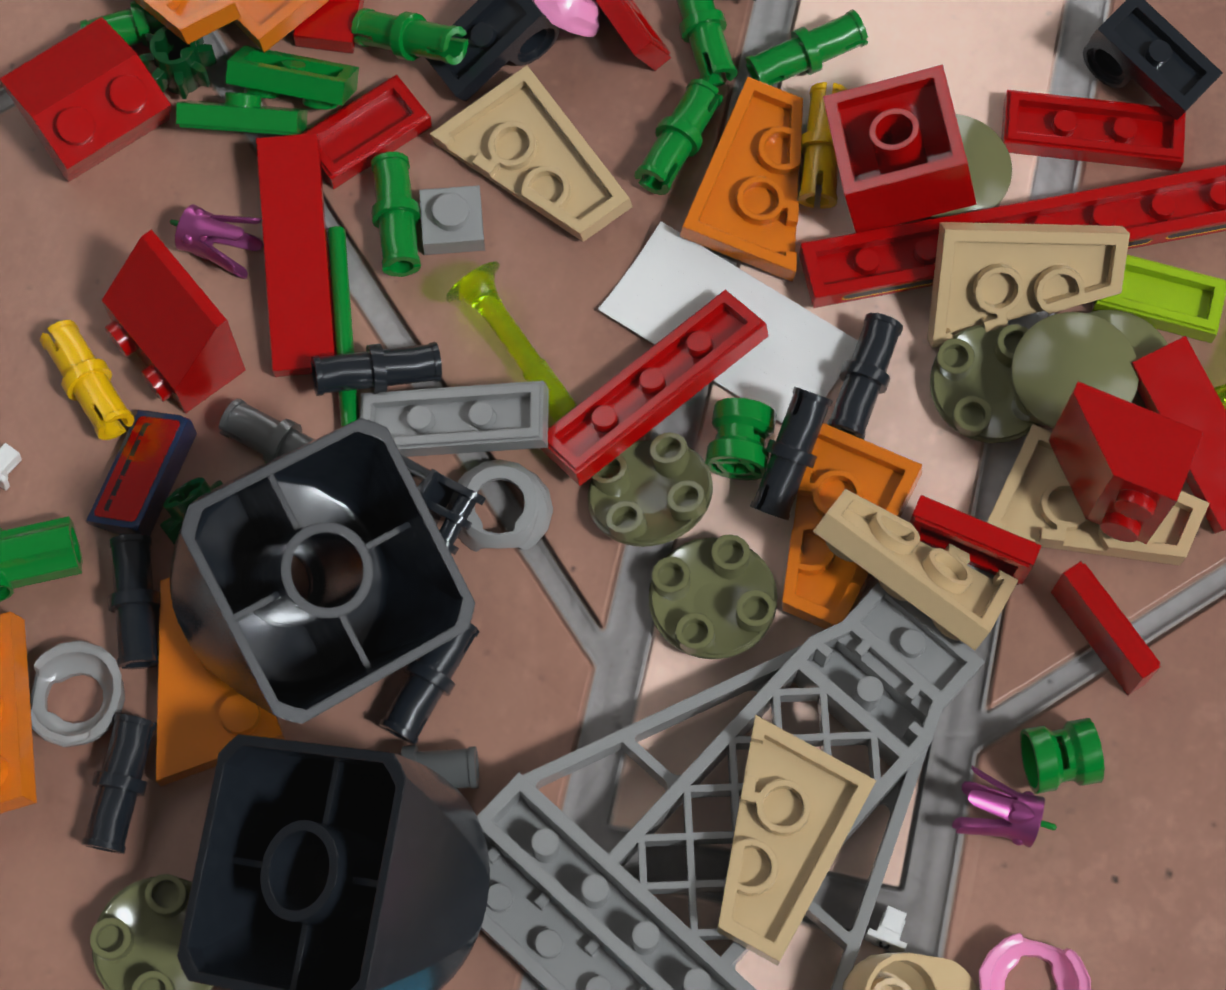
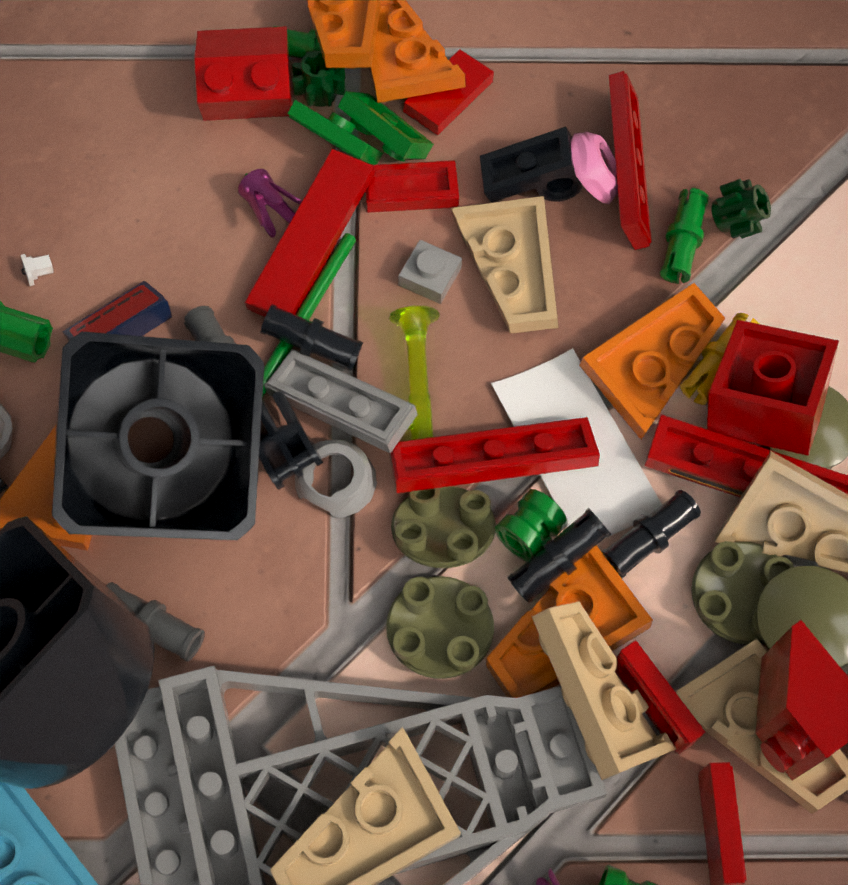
camera: 30 degrees right, 5 degrees down
(86, 379) = (124, 243): yellow pin -> none
(134, 601) = (42, 413): black pin -> none
(170, 326) = (194, 236): red slope -> none
(395, 214) = (393, 247): green pin -> none
(410, 36) = (477, 138): green pin -> none
(426, 683) = (203, 566): black pin -> none
(678, 136) = (620, 298): green pin -> none
(808, 49) = (751, 289): green pin -> none

